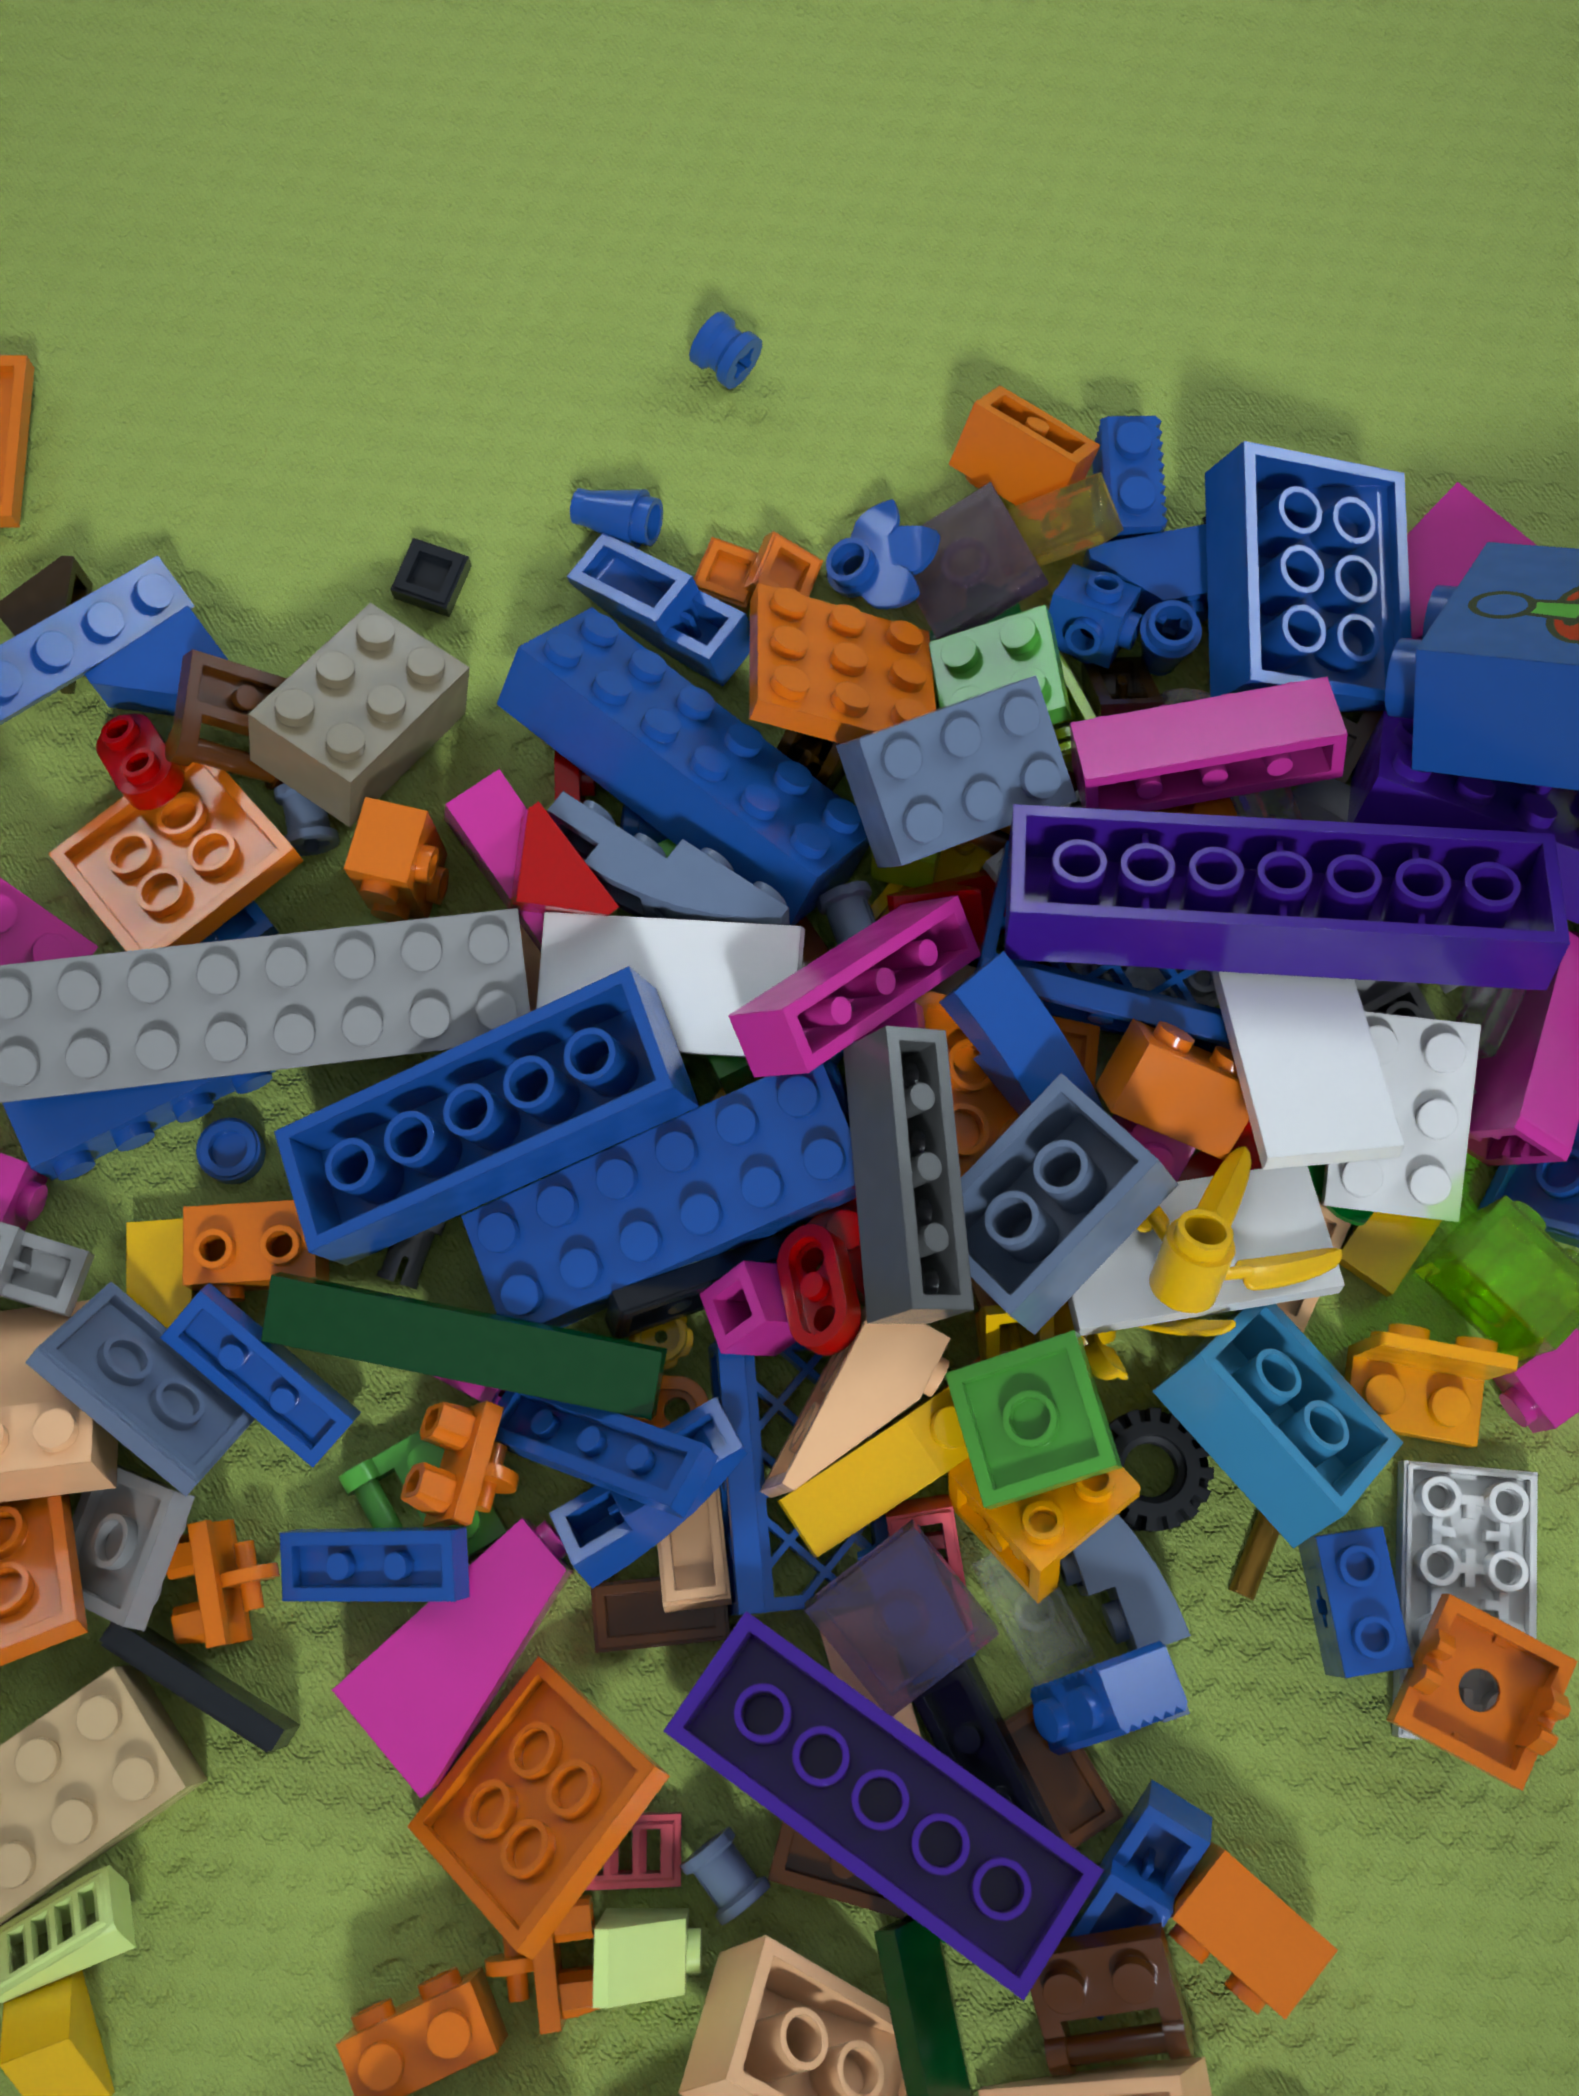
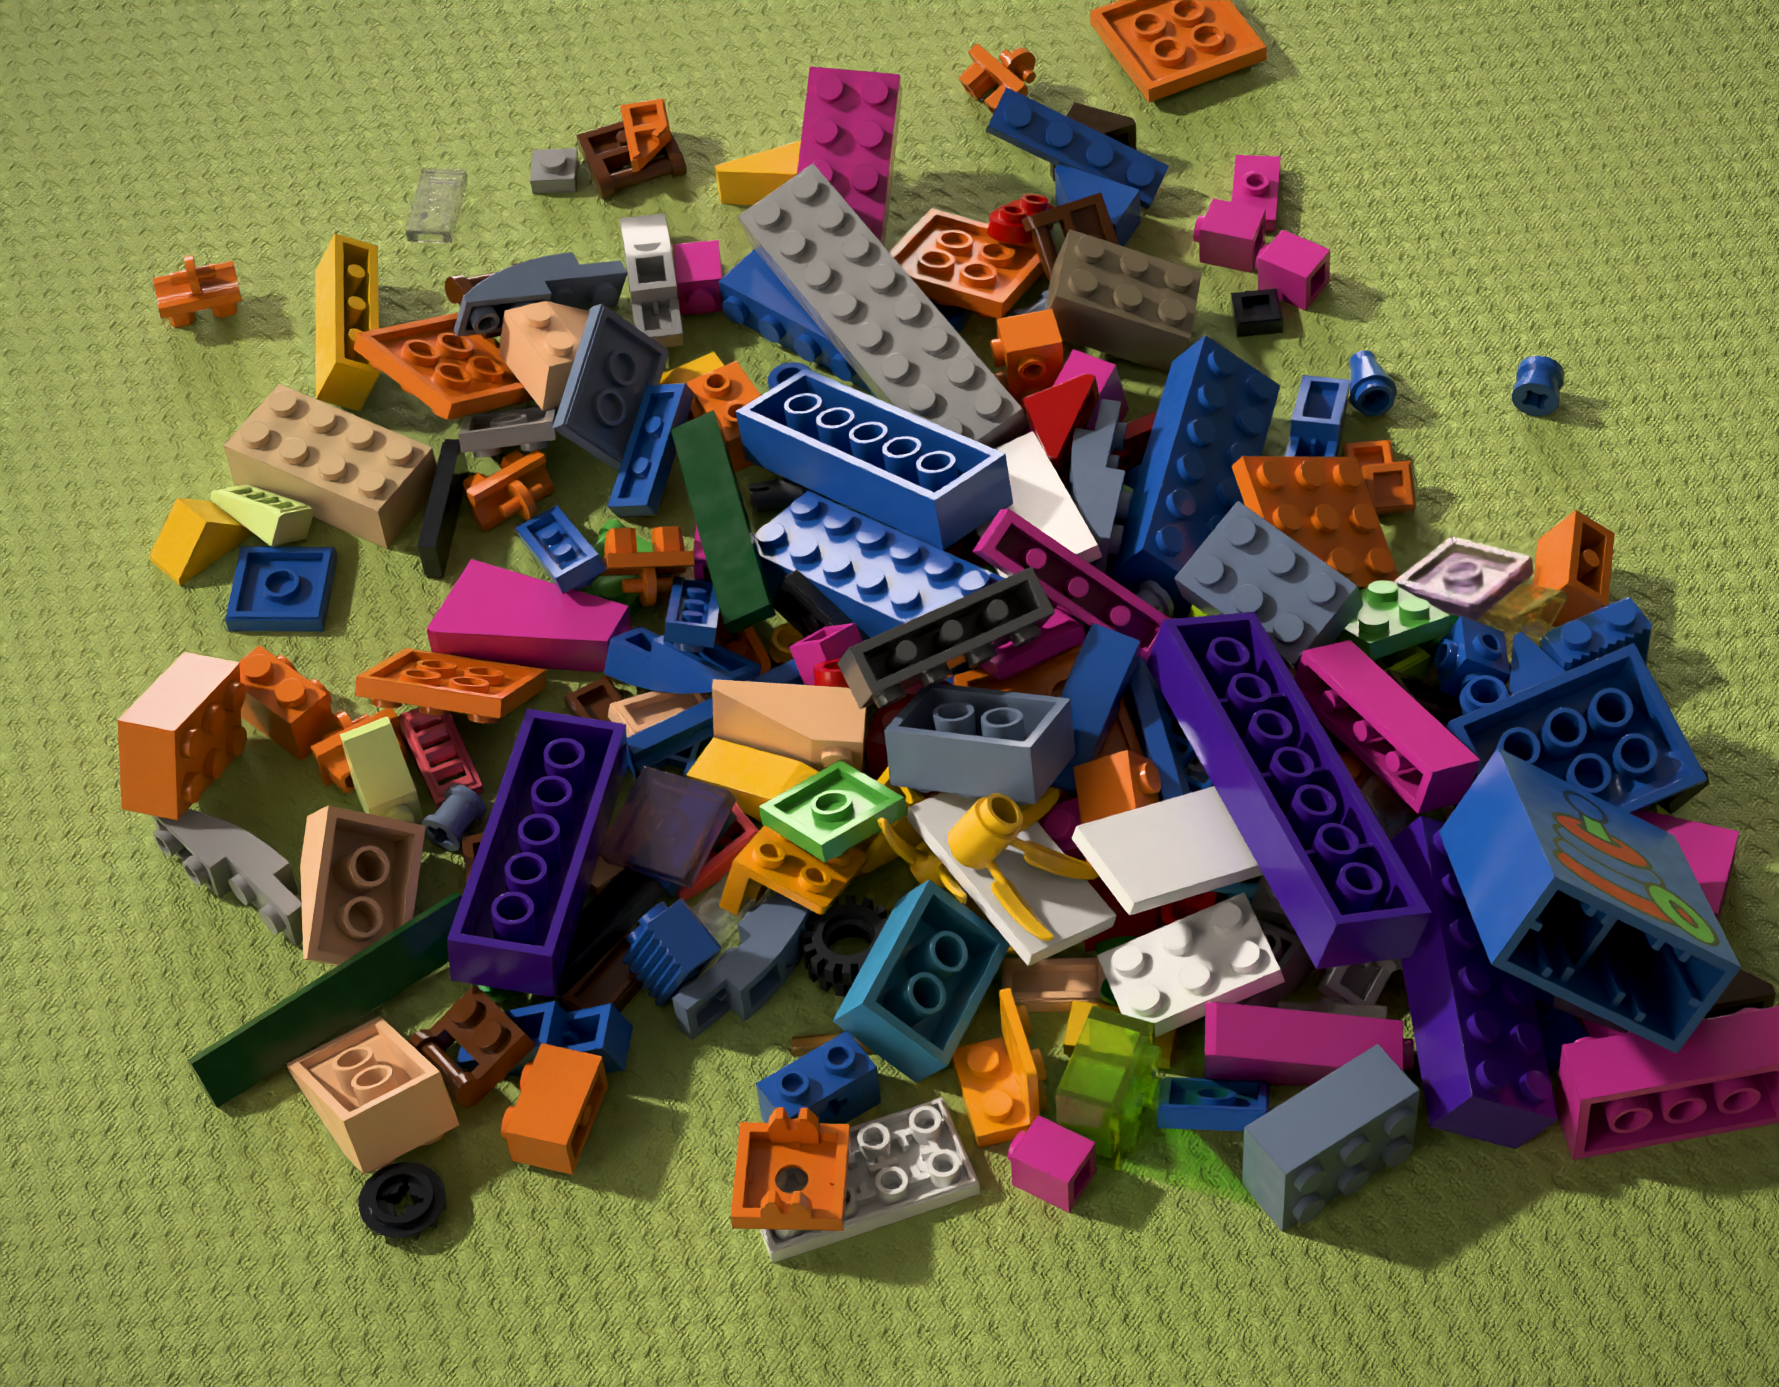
camera: 70 degrees right, 25 degrees down
(205, 1954) = (281, 589): none -> blue tile
(243, 485) = (1258, 184): none -> dark pink plate
(305, 543) = (1230, 235): none -> dark pink brick
(399, 505) = (1293, 267): none -> dark pink brick
(885, 557) = (1426, 529): blue plate -> none

